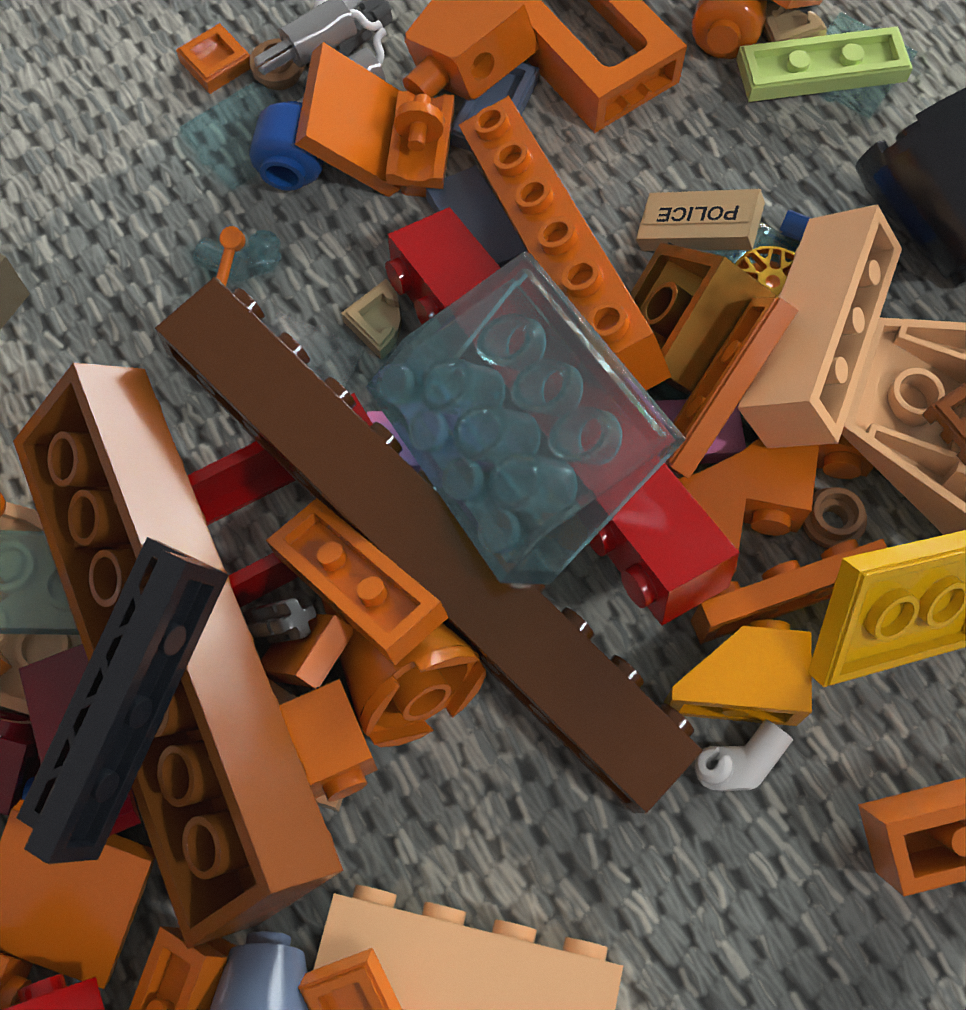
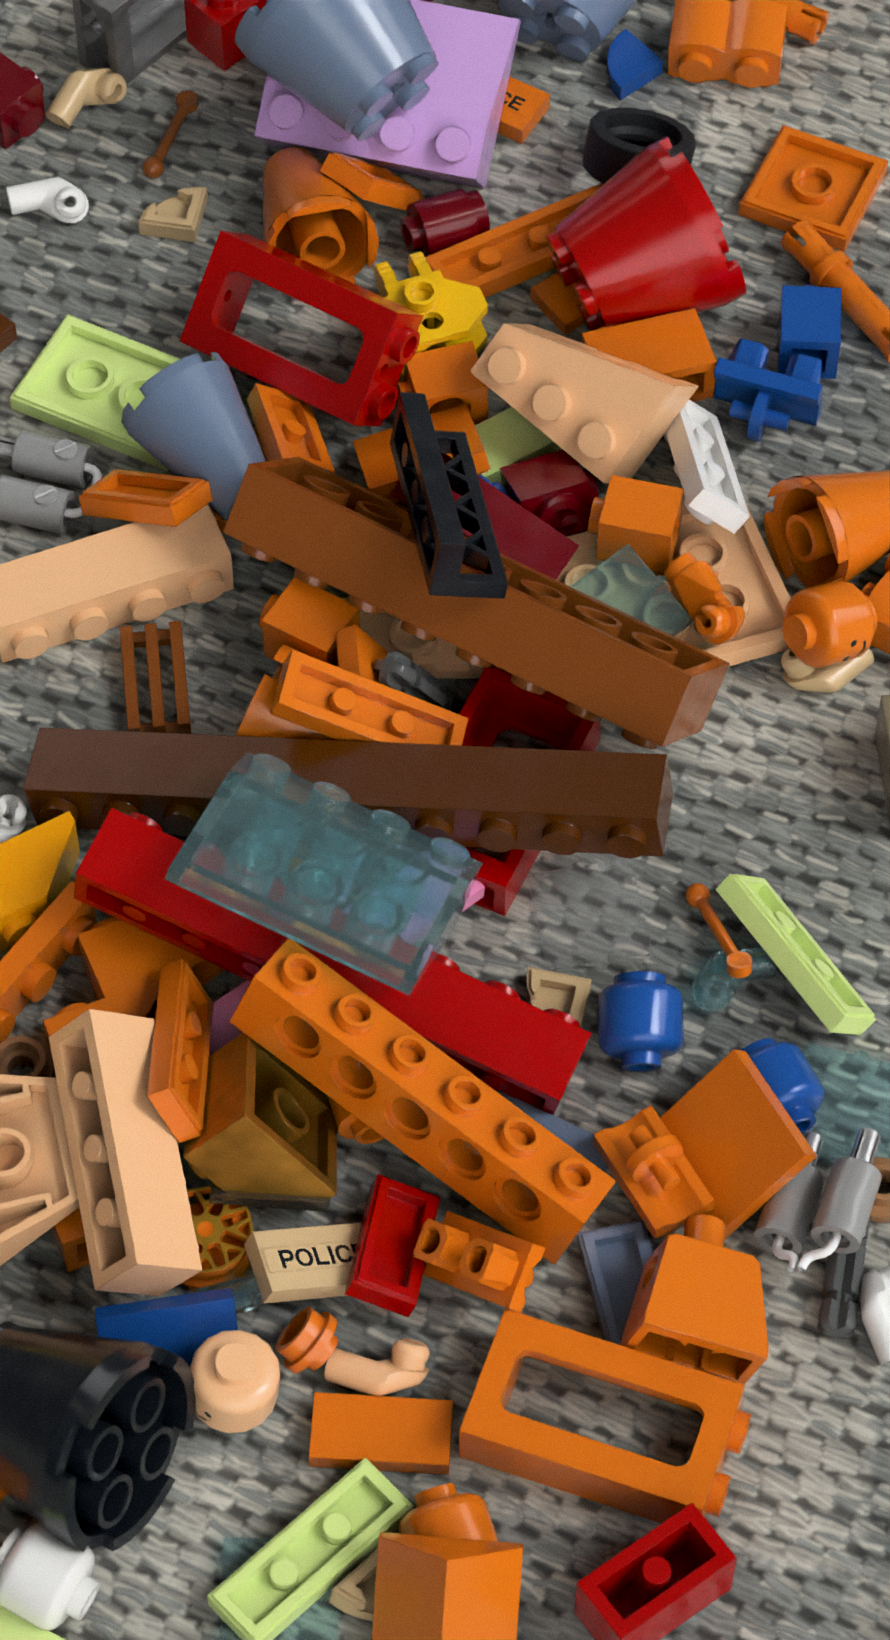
camera: 145 degrees right, 10 degrees down
(183, 232) = (796, 954): none -> yellowish green tile
(335, 251) = (640, 1020): none -> blue head
(515, 779) = (152, 639): none -> dark orange tile
(586, 146) = (478, 1259): none -> orange hips
(640, 204) = (384, 1258): none -> red tile
(700, 139) = (382, 1376): none -> light nougat arm
(724, 113) = (387, 1430): none -> orange tile
(745, 165) = (307, 1340): none -> orange plate
(816, 172) = (235, 1381): none -> light nougat head

